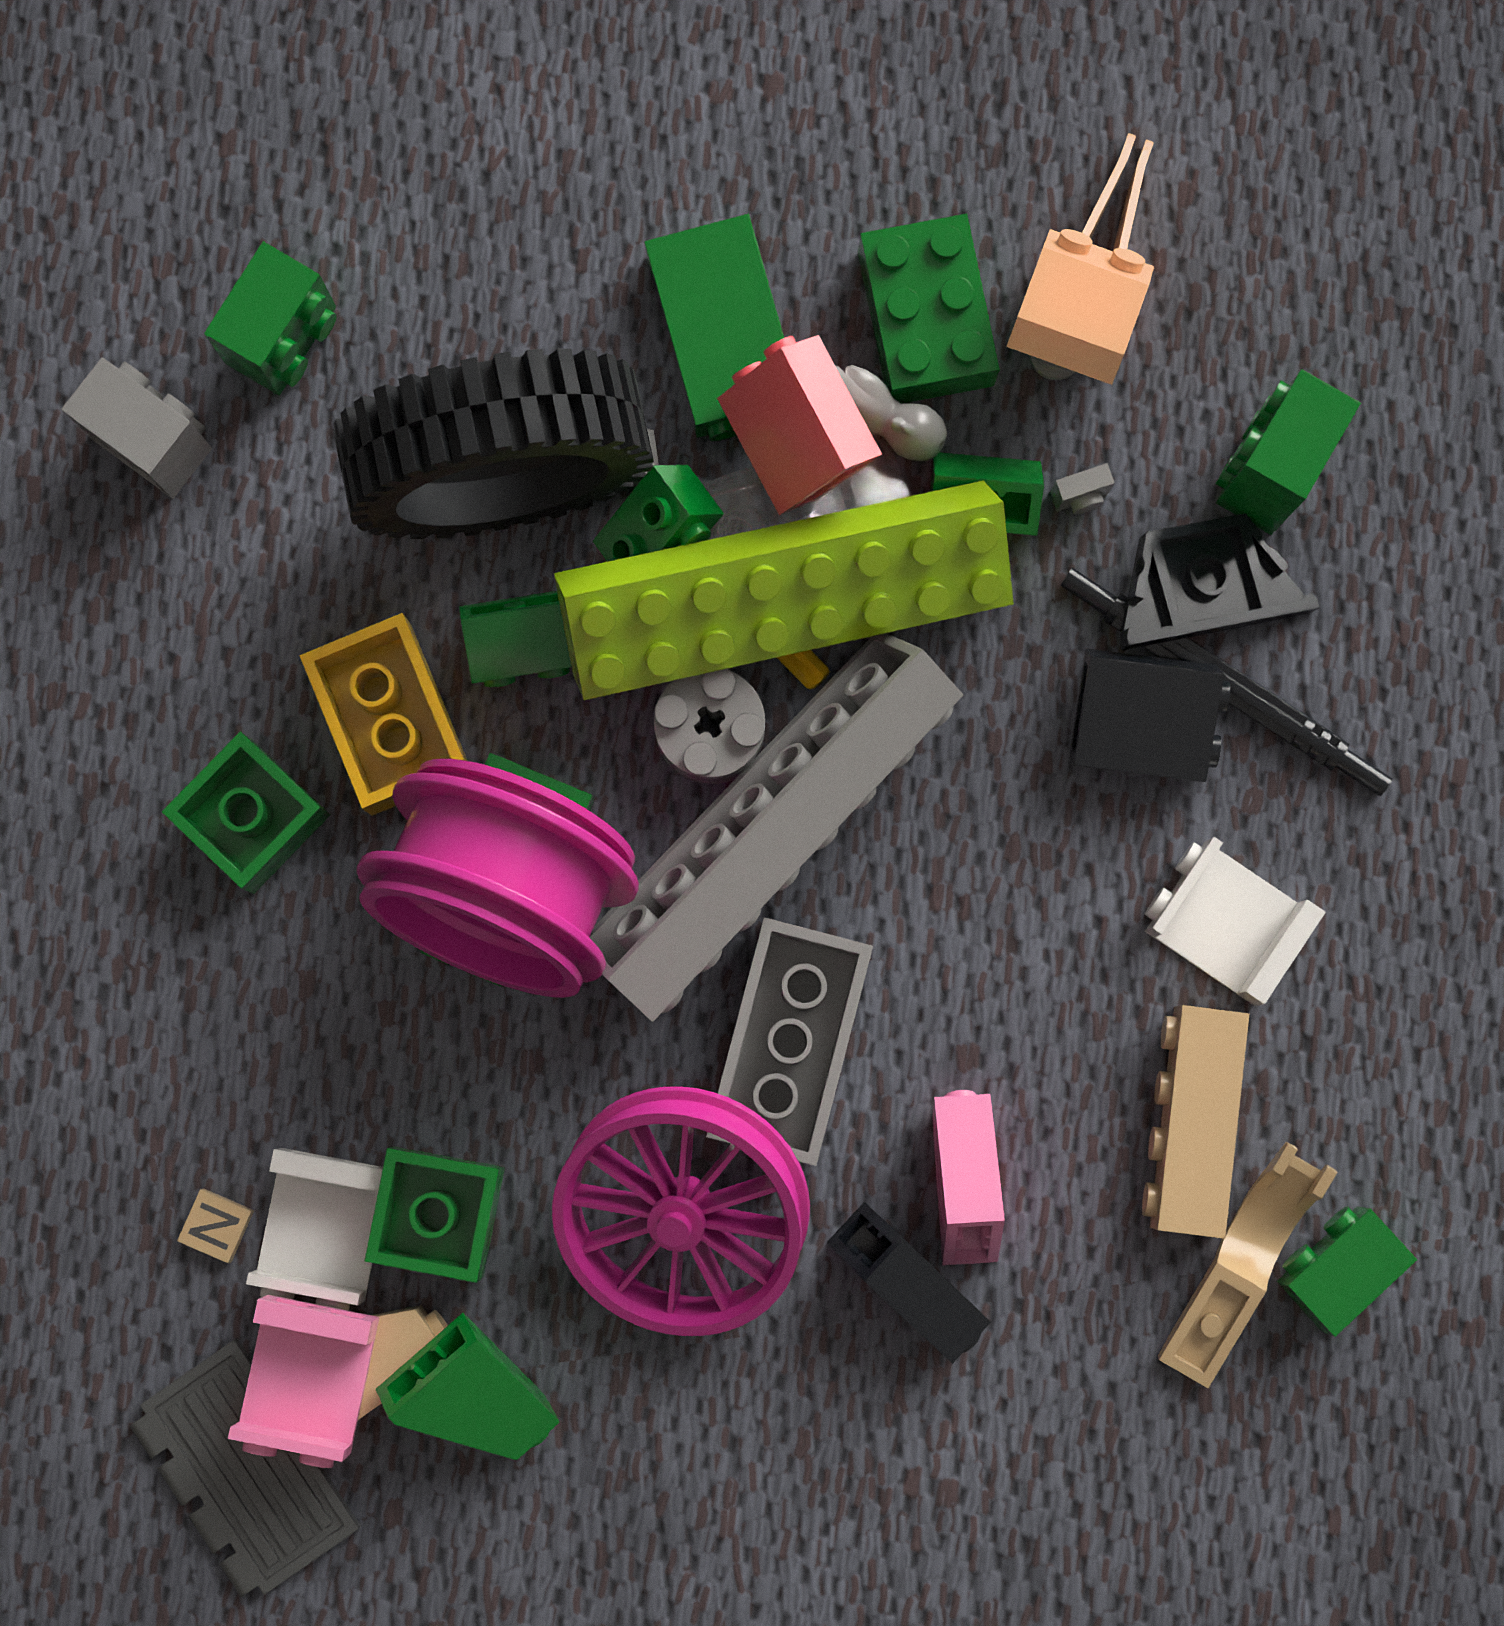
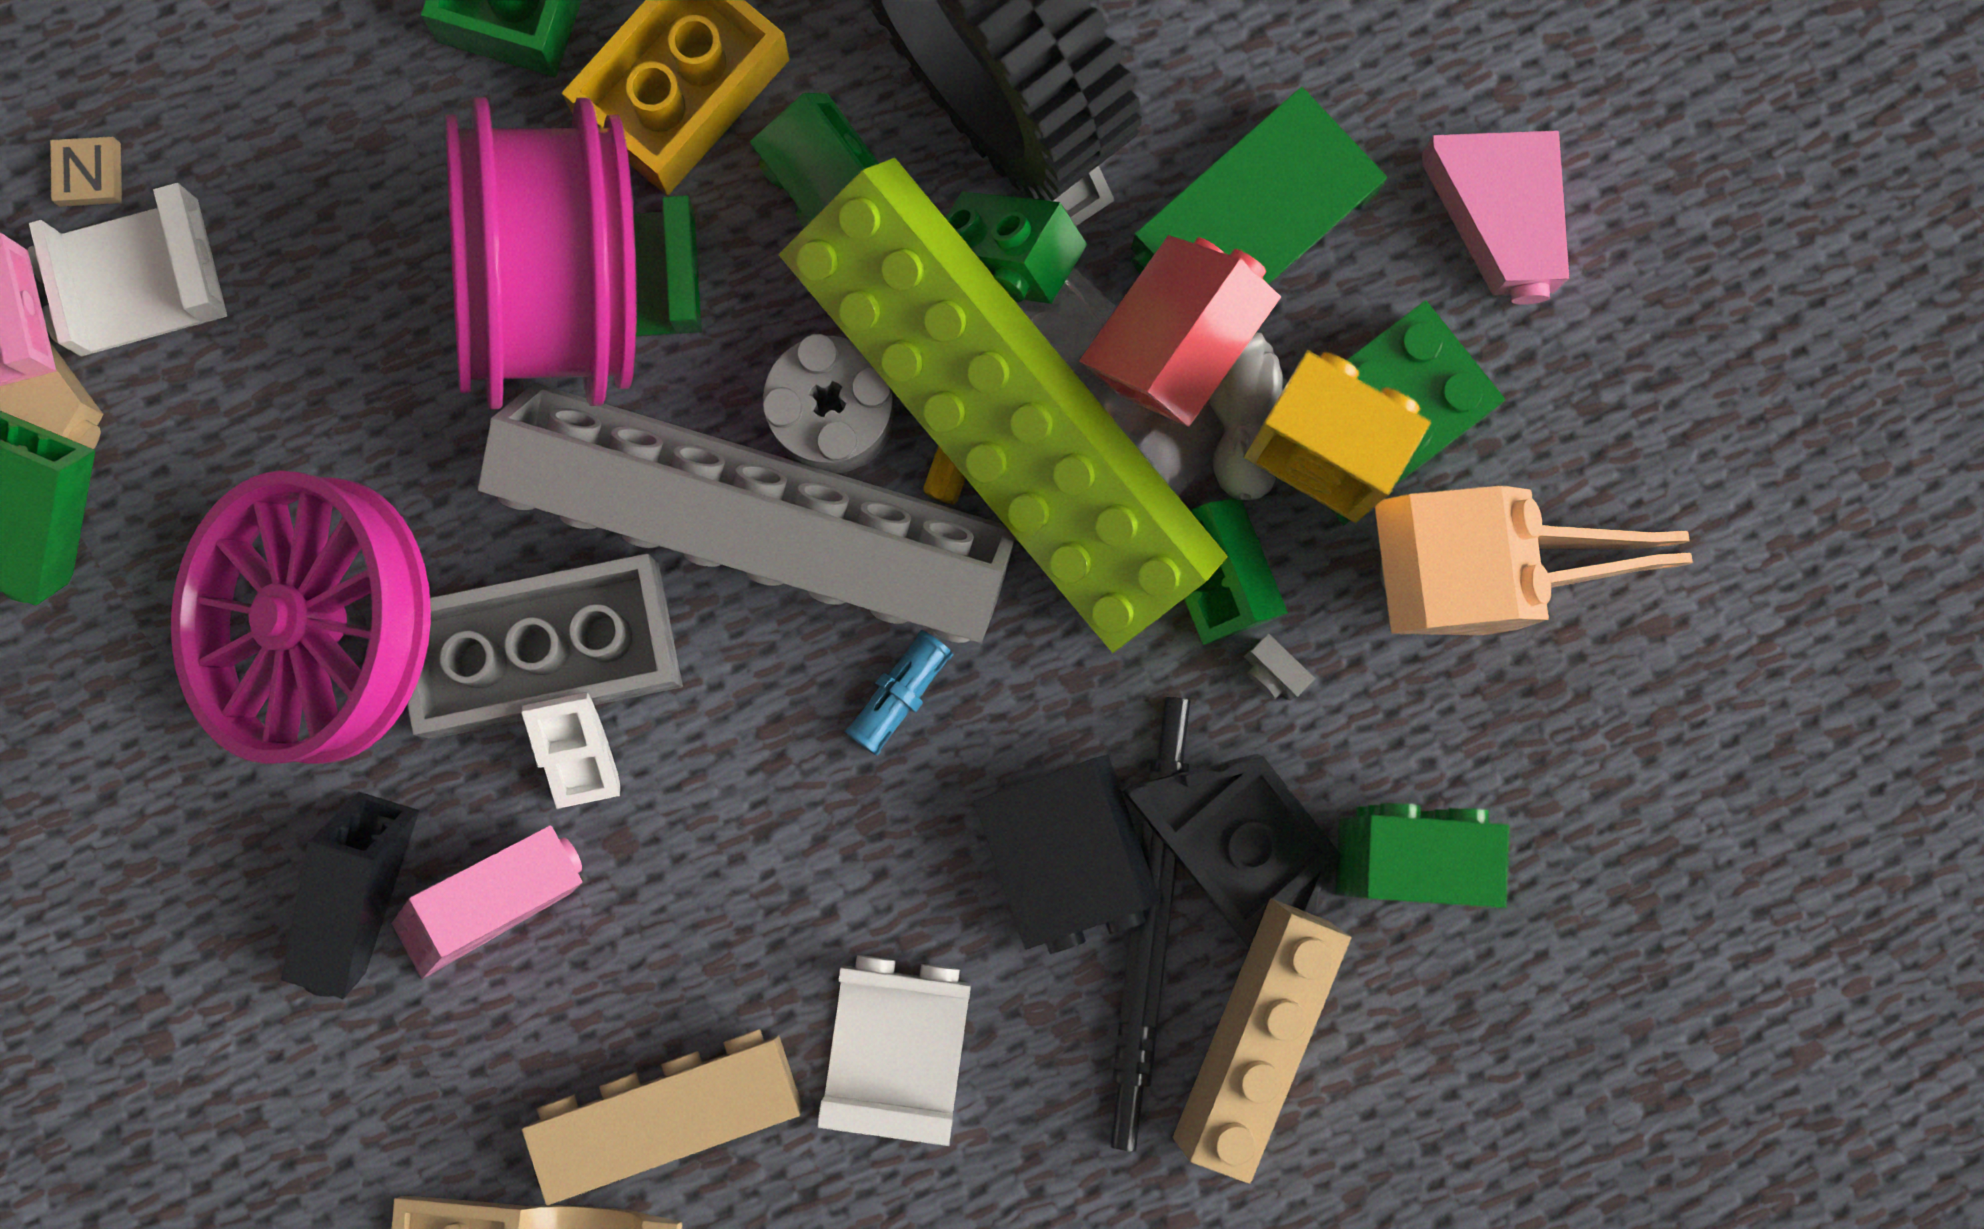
camera: 60 degrees right, 0 degrees up
(434, 1214) = (189, 376): green brick -> none
(814, 137) = (1506, 207): none -> bright pink slope
(884, 1053) = (572, 749): none -> white slope
(950, 346) = (1338, 436): none -> yellow brick
(957, 784) = (899, 692): none -> dark azure pin
(1358, 641) = (1260, 1040): none -> tan brick

